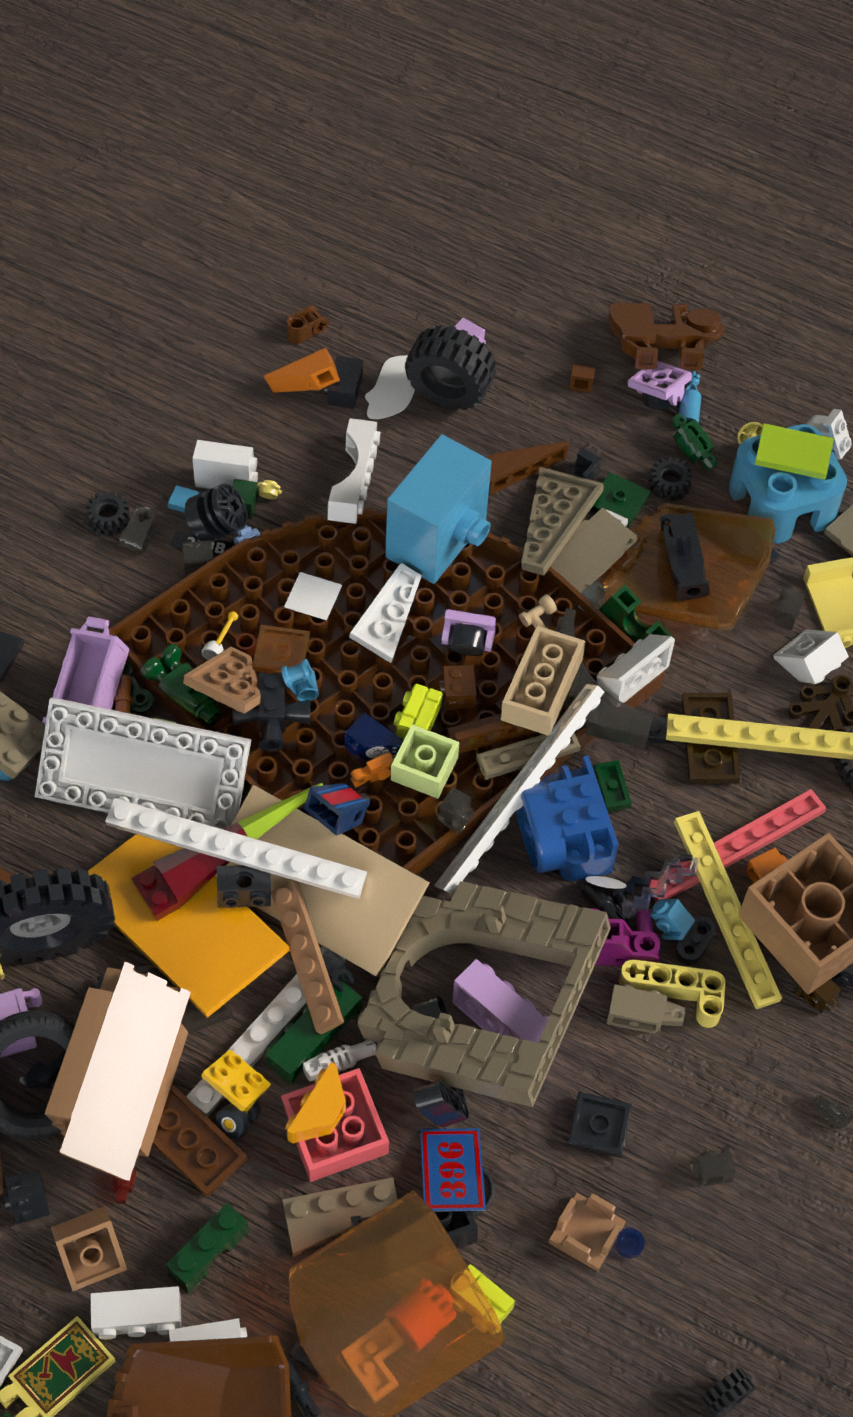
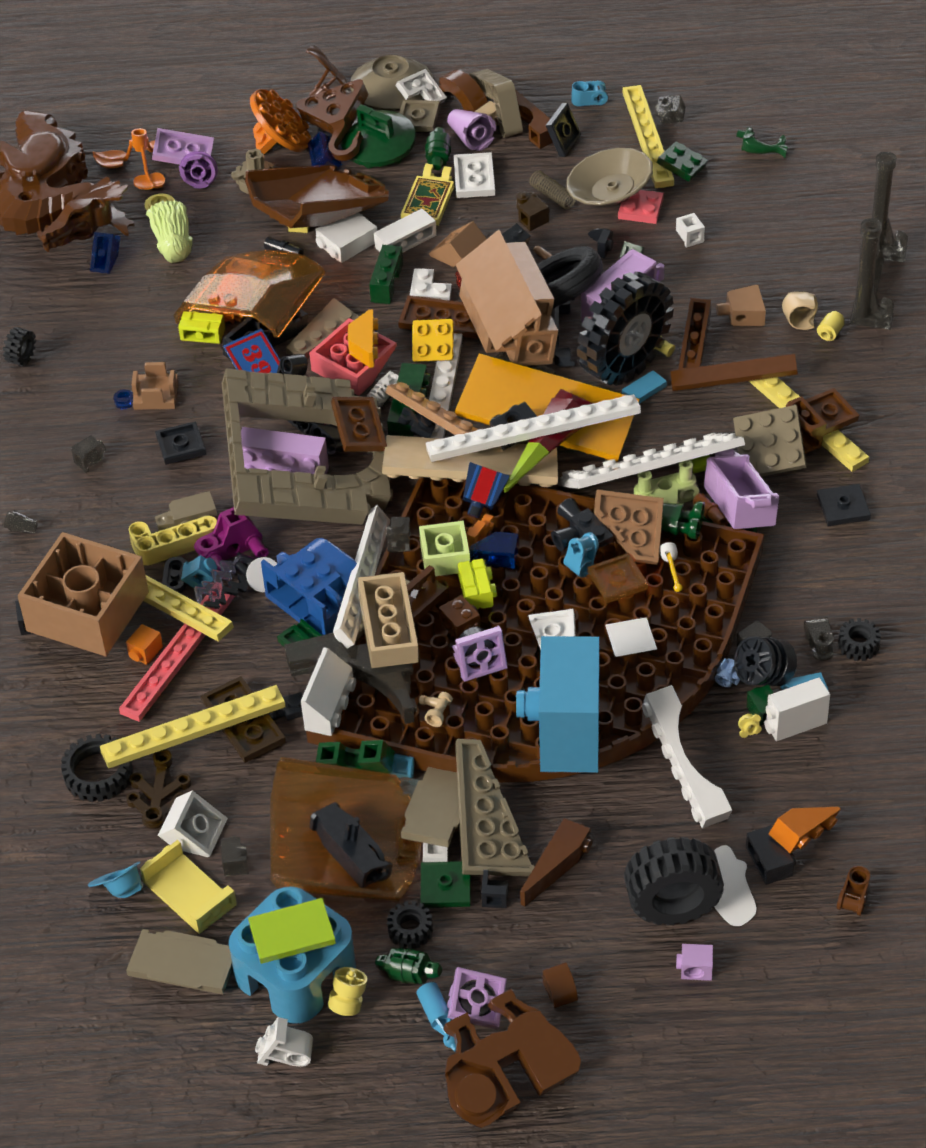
camera: 155 degrees right, 10 degrees down
(175, 1203) = (423, 285): none -> white plate
(406, 978) = (358, 424): none -> reddish brown plate

